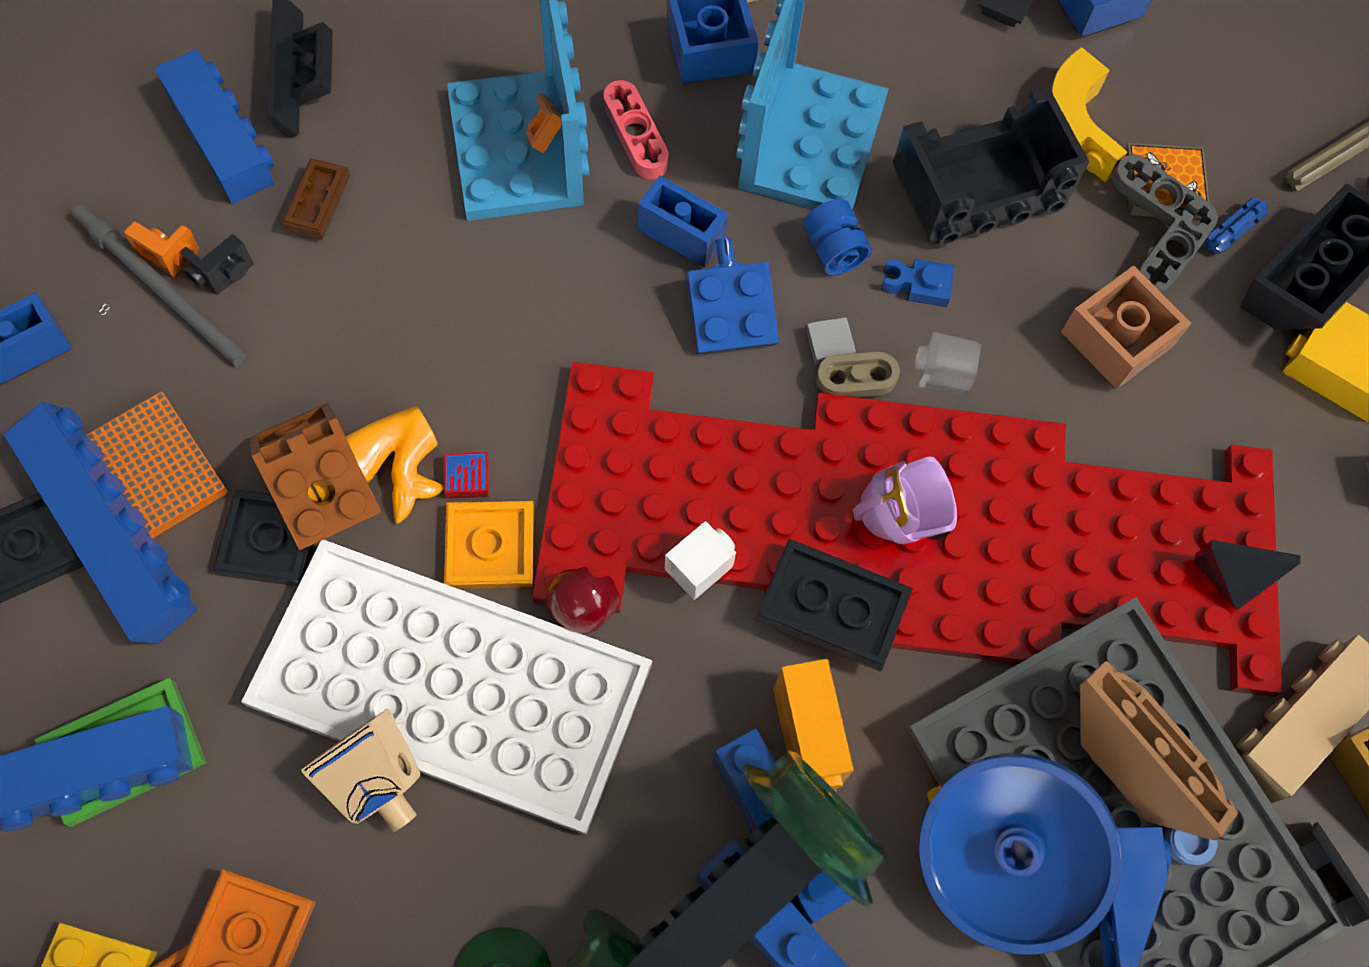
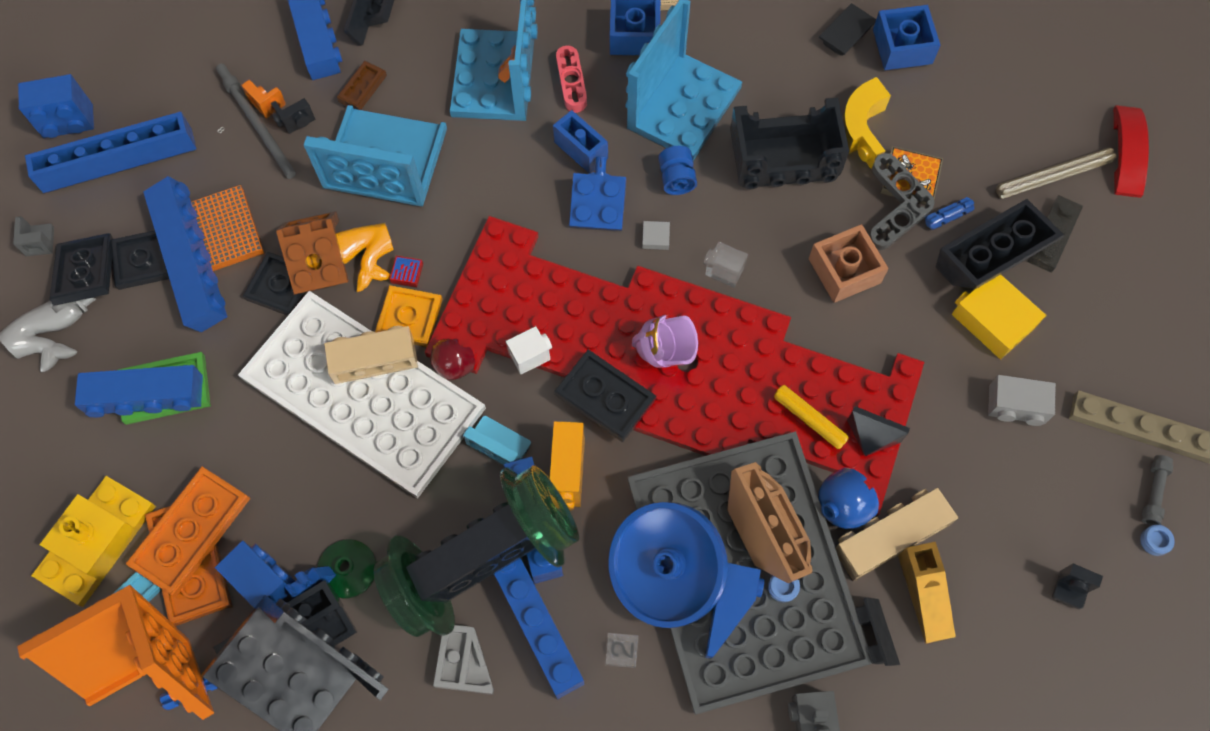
camera: 20 degrees right, 0 degrees up
(368, 773) = (298, 430): tan torso -> none
(375, 303) = (378, 156): none -> dark azure bracket
(454, 621) = (370, 354): none -> tan brick
(686, 714) = (497, 441): none -> medium azure panel
(855, 373) = (666, 257): dark tan plate -> none
(926, 281) = (729, 210): blue plate -> none
(1146, 569) = (811, 417): none -> yellow axle
(1241, 681) = (847, 499): none -> blue cylinder

